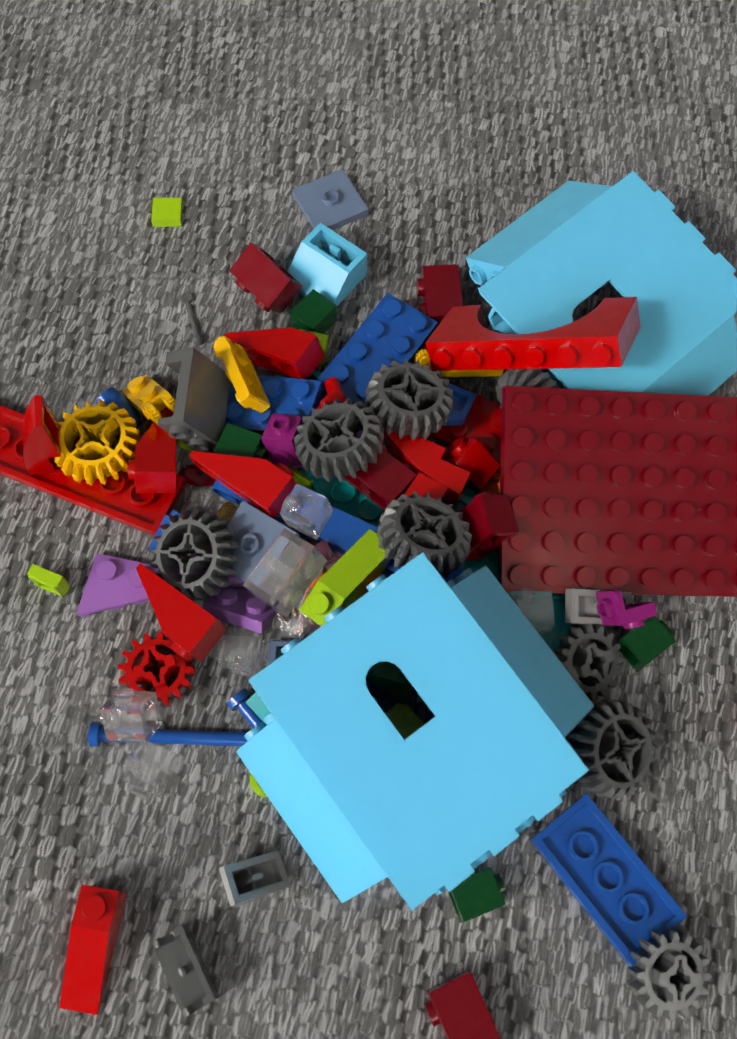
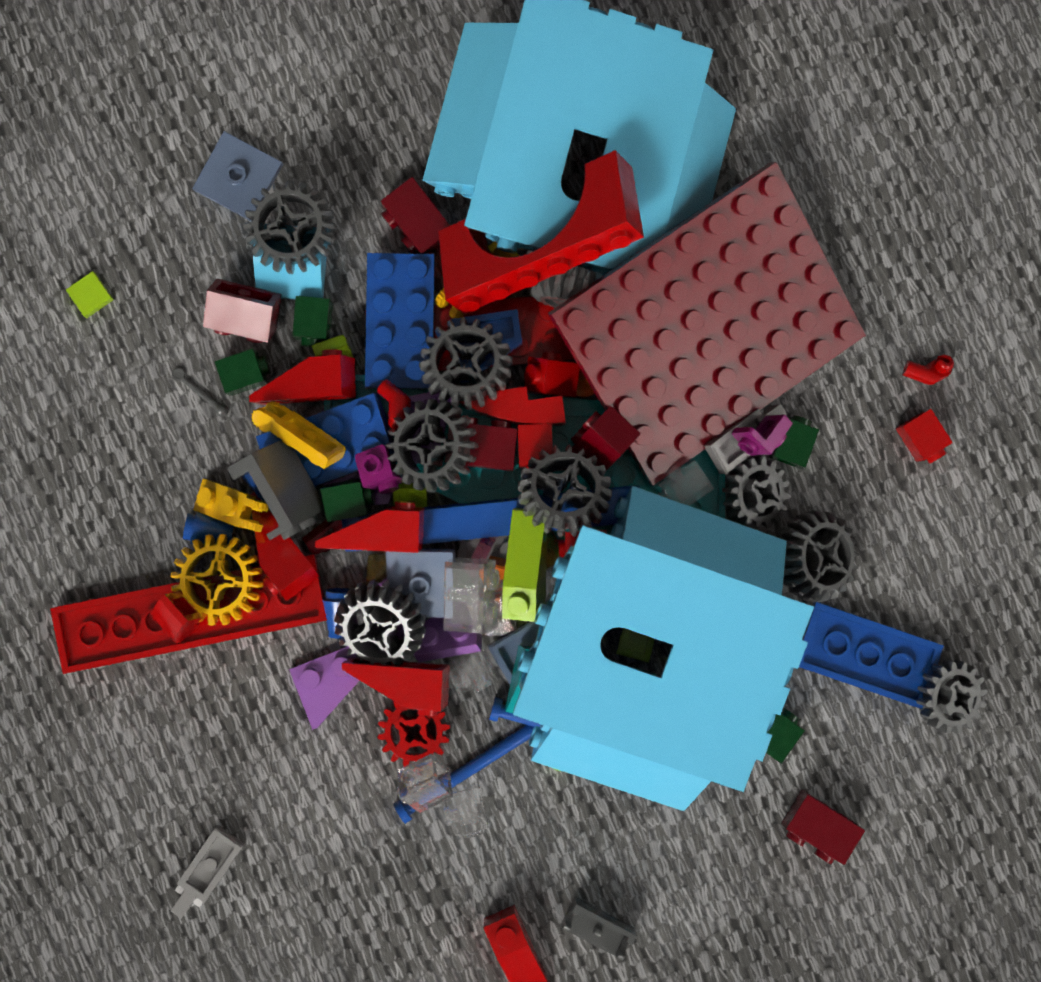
camera: 30 degrees left, 20 degrees up
(48, 580) = (269, 720): lime tile -> none
(232, 316) = (242, 372): none -> dark green brick
(254, 878) = (604, 834): light grey slope -> none
(306, 511) = (450, 532): clear brick -> none
(343, 232) = (275, 230): none -> dark grey gear

